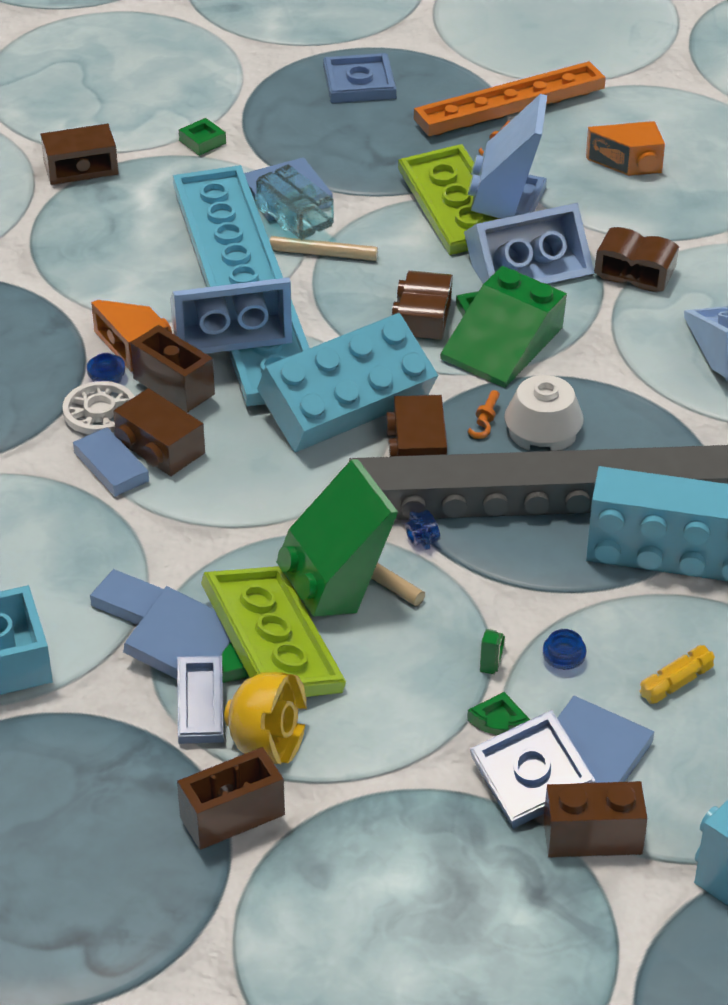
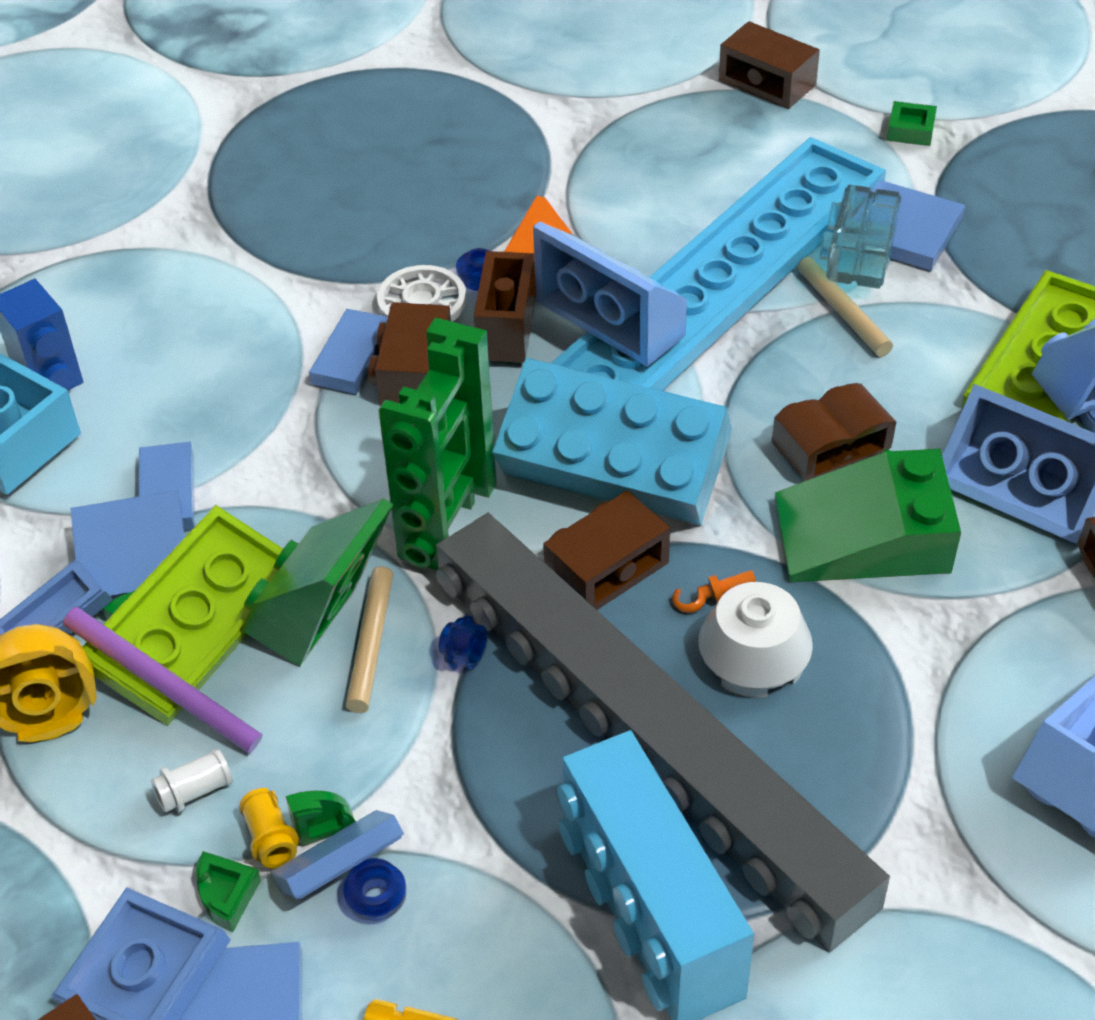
camera: 55 degrees right, 5 degrees up
(301, 421) = (439, 441): none -> green fence
(325, 662) = (162, 679): none -> medium lavender bar
(407, 700) = (191, 781): none -> white pin
(479, 673) = (272, 838): none -> yellow pin
(528, 651) = (337, 854): none -> medium blue tile

